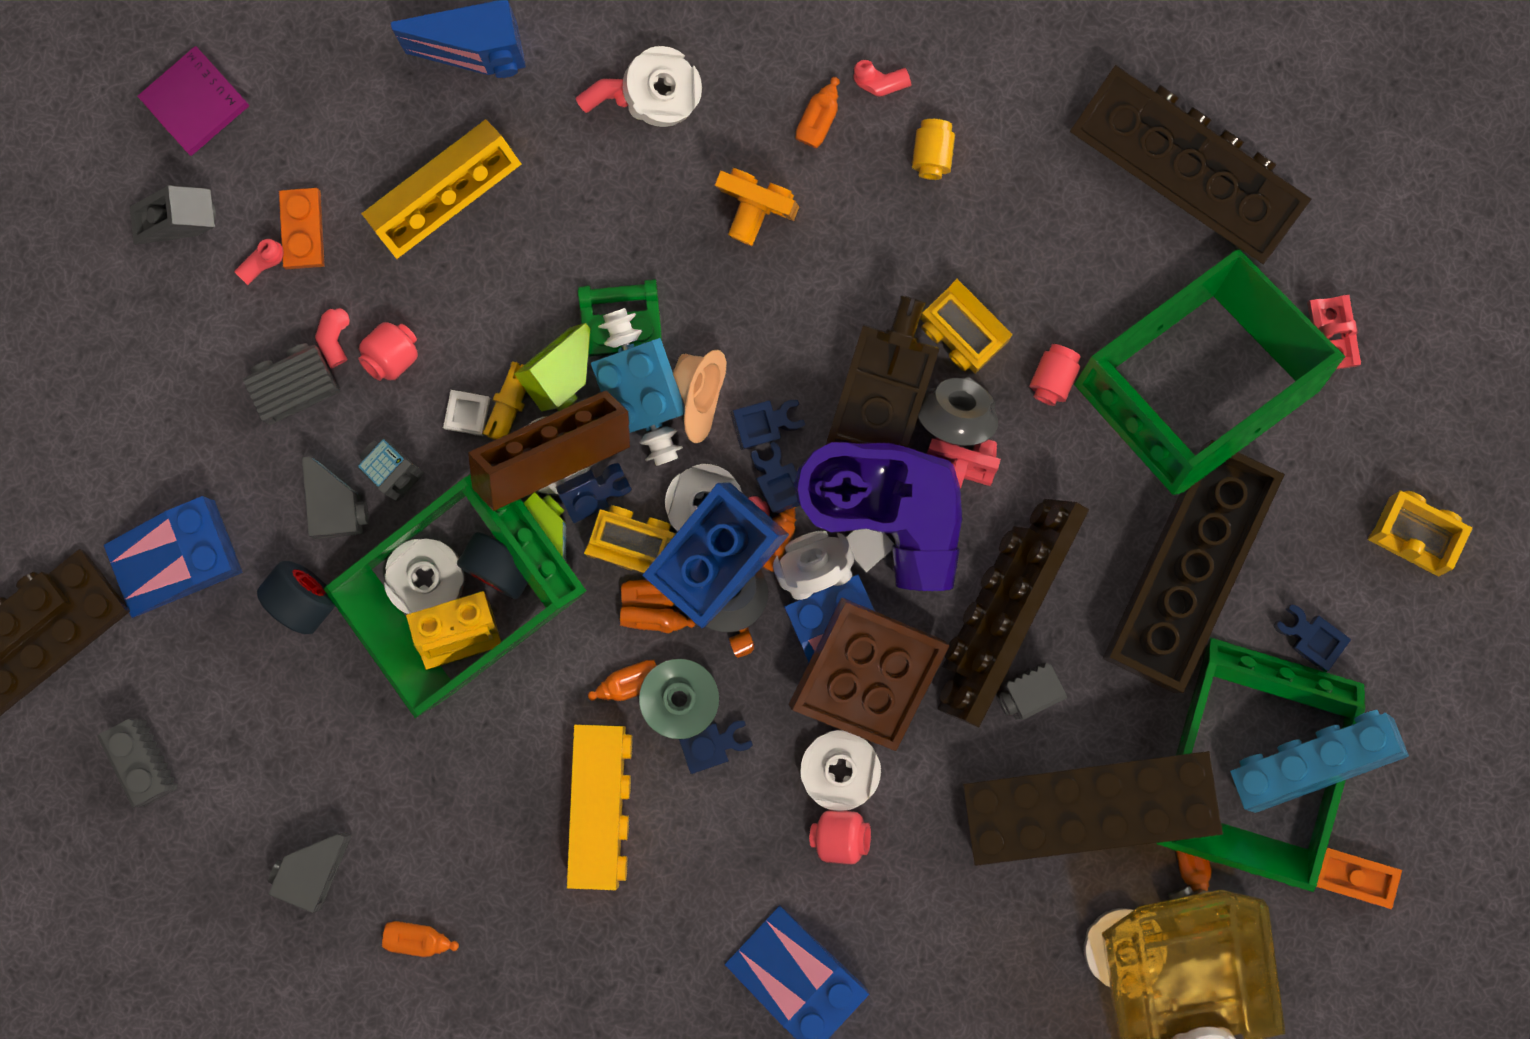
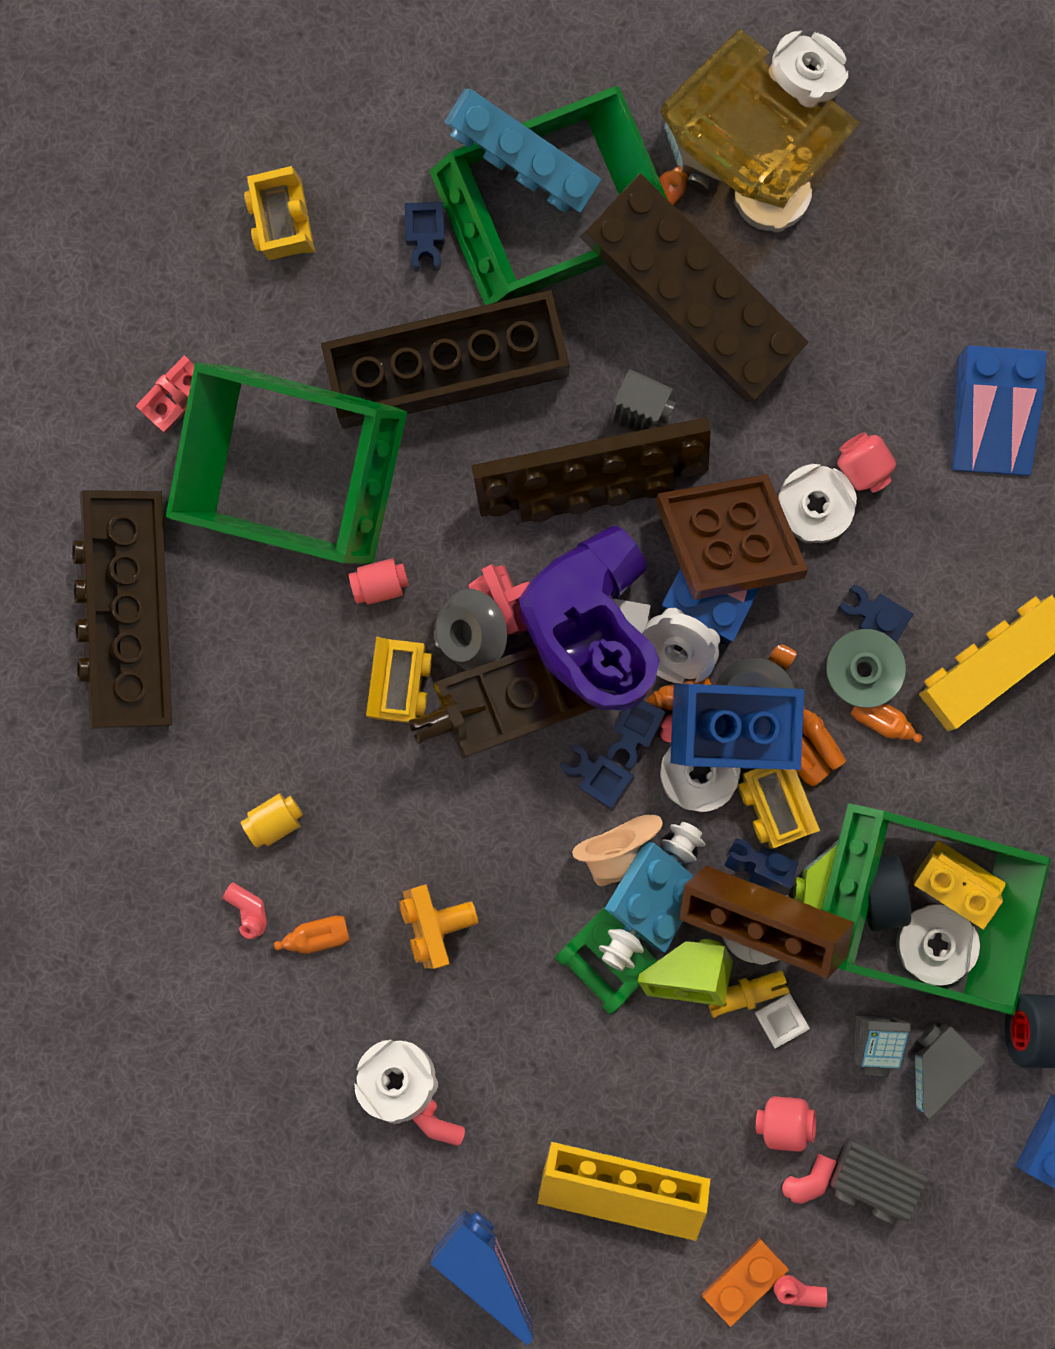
camera: 135 degrees left, 0 degrees up
(1359, 878) = (578, 63): orange plate -> none

